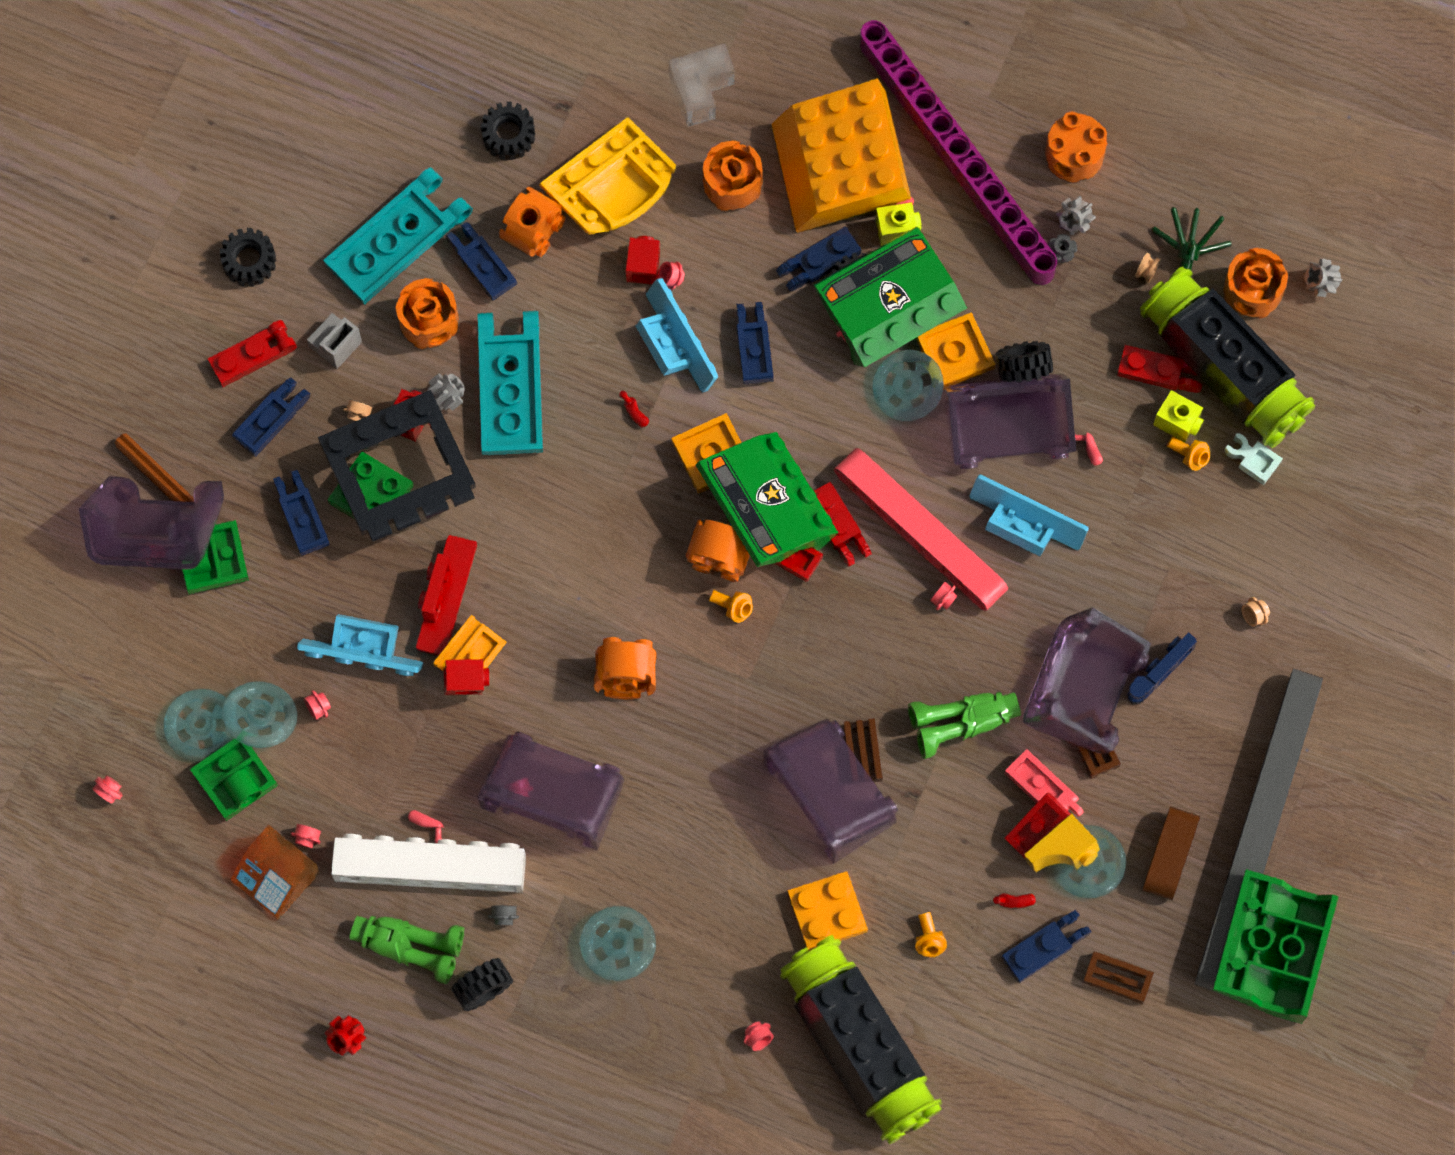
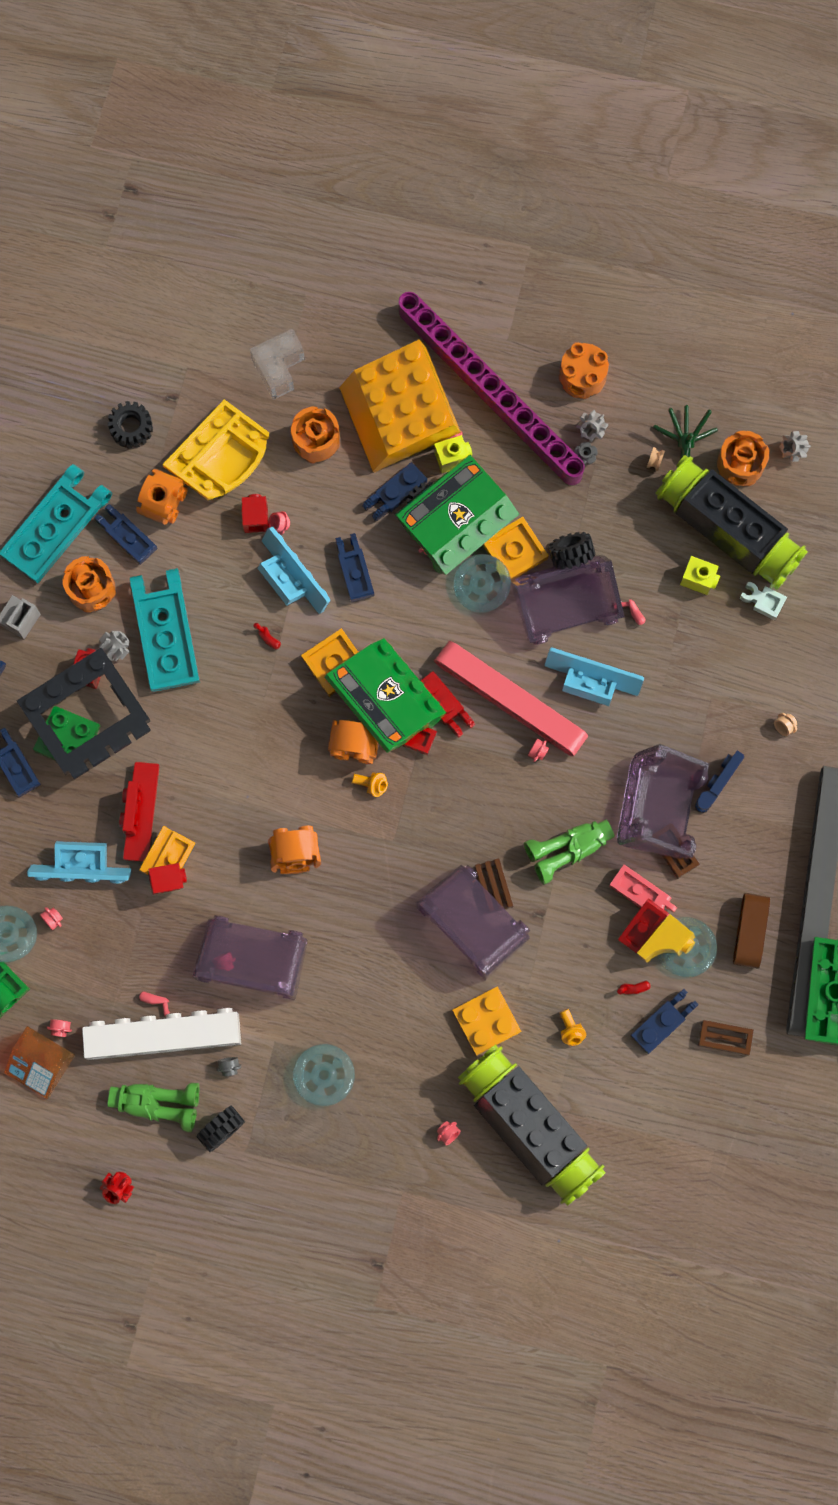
camera: 10 degrees left, 5 degrees up
(357, 410) = (46, 672): light nougat plate -> none
(1156, 369) = (675, 540): red hinge -> none
(1195, 455) = (717, 605): light orange plate -> none

